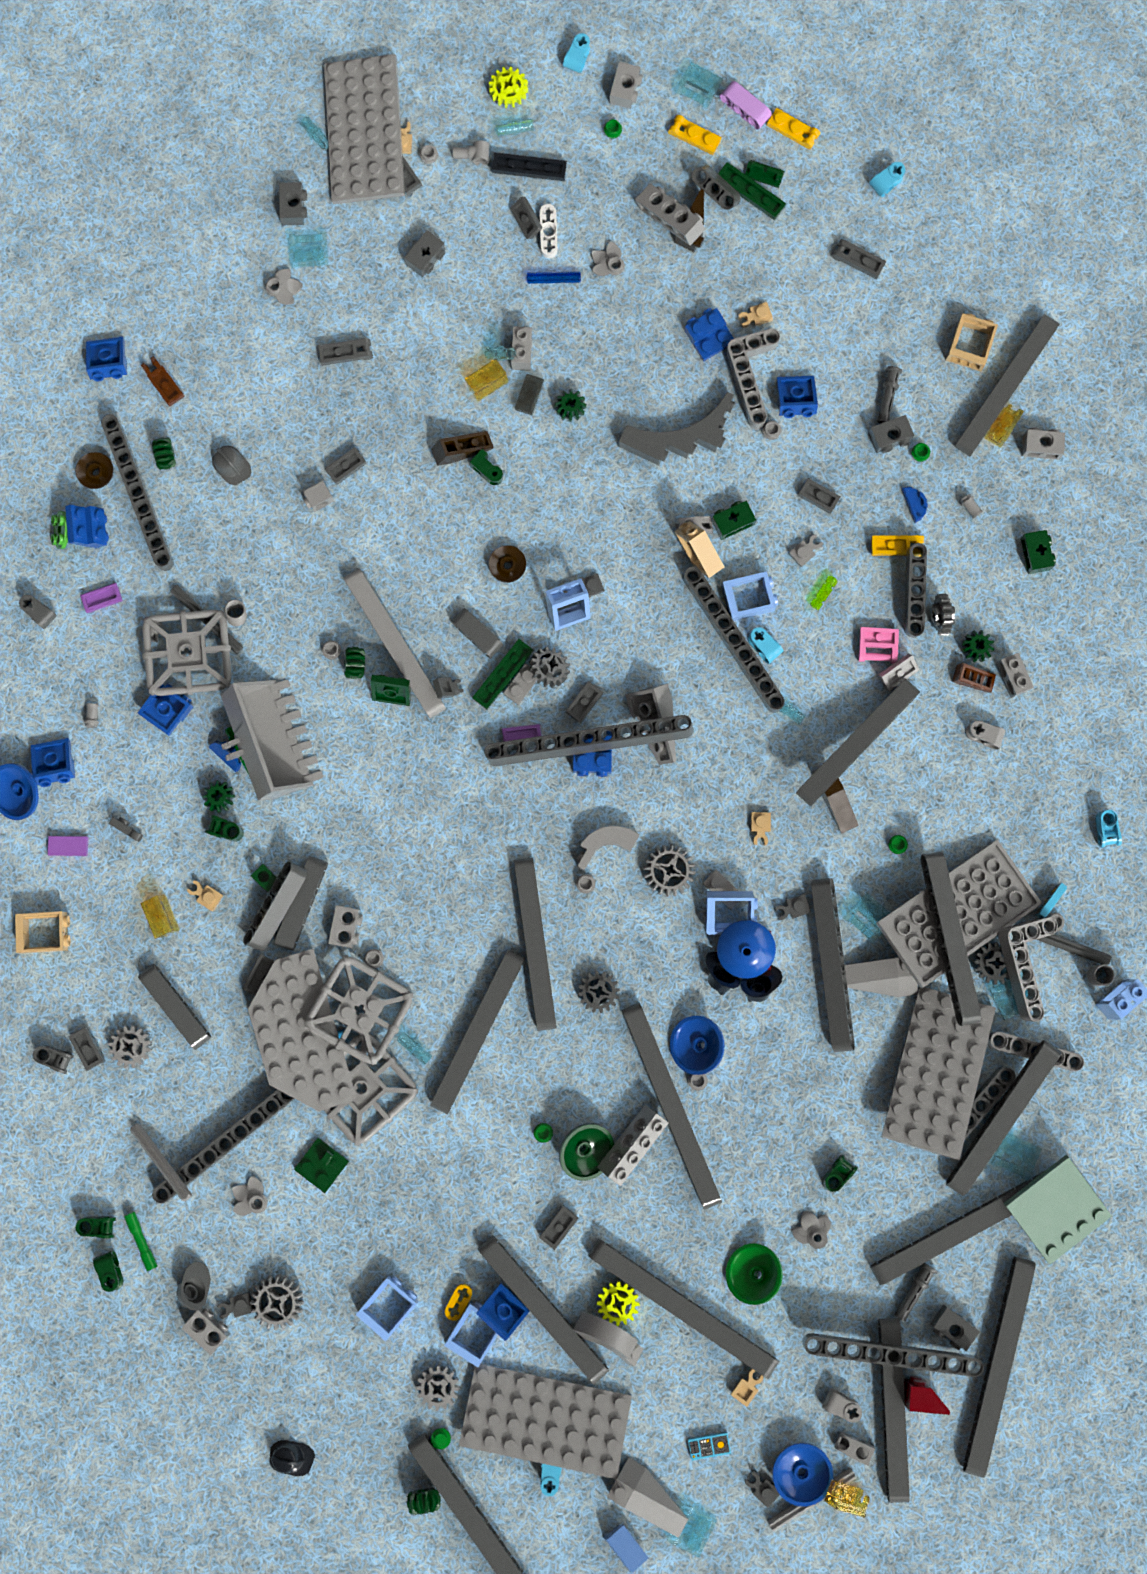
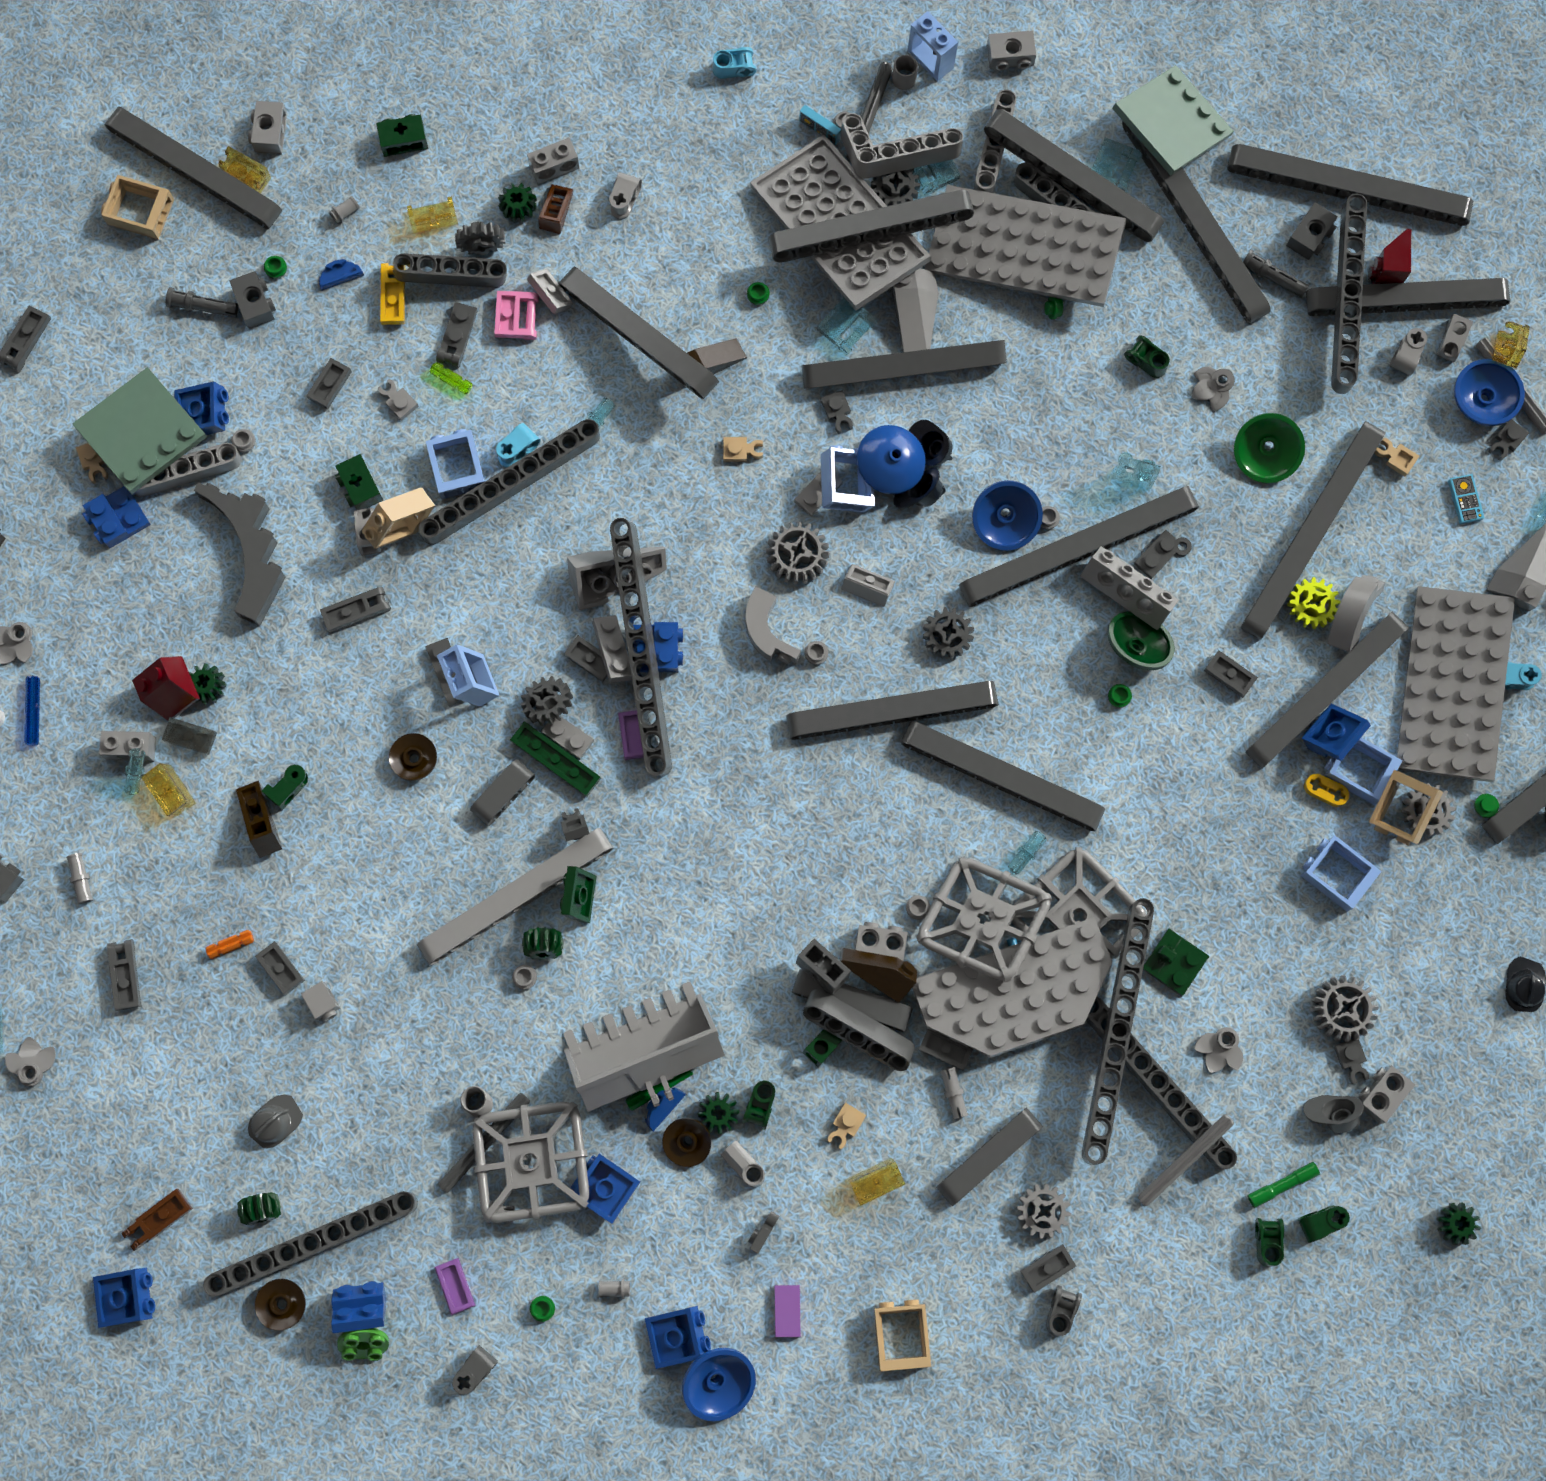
camera: 95 degrees left, 5 degrees down
(80, 662) = (542, 1308): none -> green plate
(107, 1379) = (1464, 1215): none -> dark green gear
(179, 813) = (742, 1162): none -> light grey piece
(192, 767) = (681, 1152): none -> dark brown dish
(225, 981) = (954, 1093): none -> light grey pin
(252, 1112) = (1110, 1041): none -> dark grey beam
(320, 923) = (882, 971): none -> dark brown slope
(322, 878) = (823, 967): none -> dark grey brick
(366, 428) = (229, 944): none -> orange axle
(420, 317) = (79, 878): none -> light grey pin
(453, 1376) = (1386, 799): none -> tan window
(566, 375) = (166, 687): none -> dark red slope
(591, 718) = (612, 648): none -> light grey plate
(628, 518) = (354, 609): none -> dark grey plate
(642, 928) = (868, 585): none -> light grey slope
(665, 1175) = (1160, 553): none -> dark grey hinge
(732, 1161) = (1143, 473): none -> clear light blue plate
(776, 348) = (139, 430): none -> sand green plate
(862, 597) = (457, 334): none -> dark grey plate
(883, 1095) = (1053, 308): none -> green plate
(966, 577) = (432, 216): none -> clear yellow hinge
(1131, 1078) = (1020, 42): none -> light grey brick

